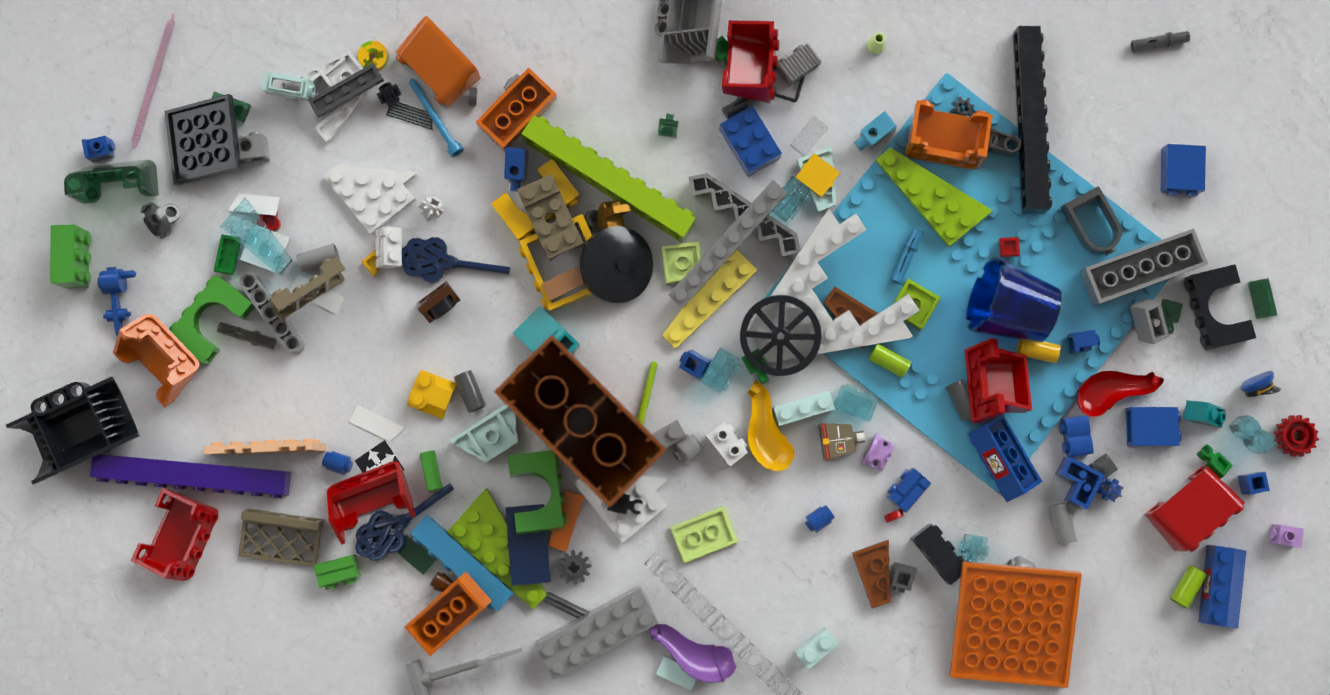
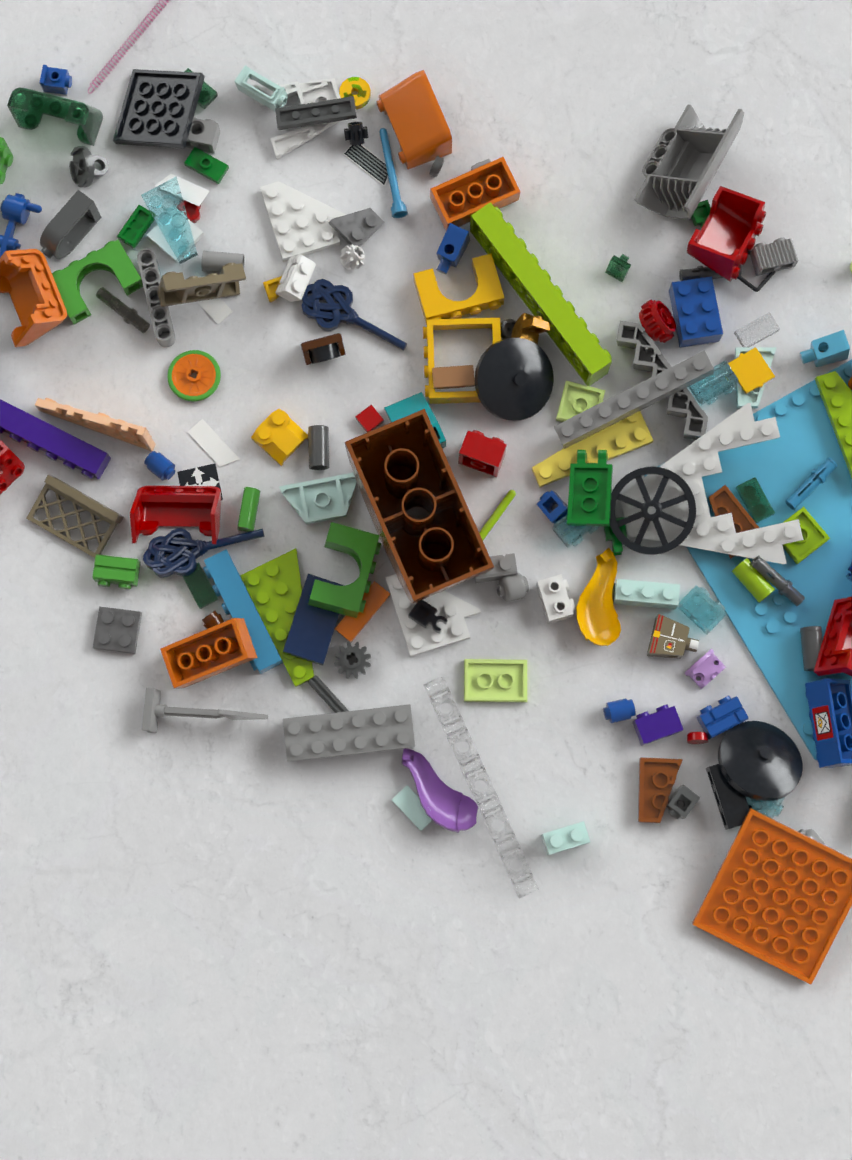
camera: 25 degrees right, 5 degrees down
(167, 280) = (69, 226): none -> dark grey window
(267, 174) = (206, 165): none -> green plate
(321, 369) = (194, 362): none -> orange wheel
(359, 622) = (117, 630): none -> flat silver plate
(424, 178) = (357, 226): none -> flat silver wing
(504, 347) = (369, 418): none -> red tile
(544, 198) = (466, 287): dark tan piece -> none
(614, 341) = (482, 453): none -> red brick
(720, 163) = (657, 321): none -> red gear
(721, 339) = (590, 491): none -> green tile
(856, 518) = (657, 725): none -> dark purple brick
(864, 289) = (755, 500): none -> clear green plate
(917, 356) = (784, 586): none -> dark grey pin
(954, 516) = (760, 761): none -> black dish

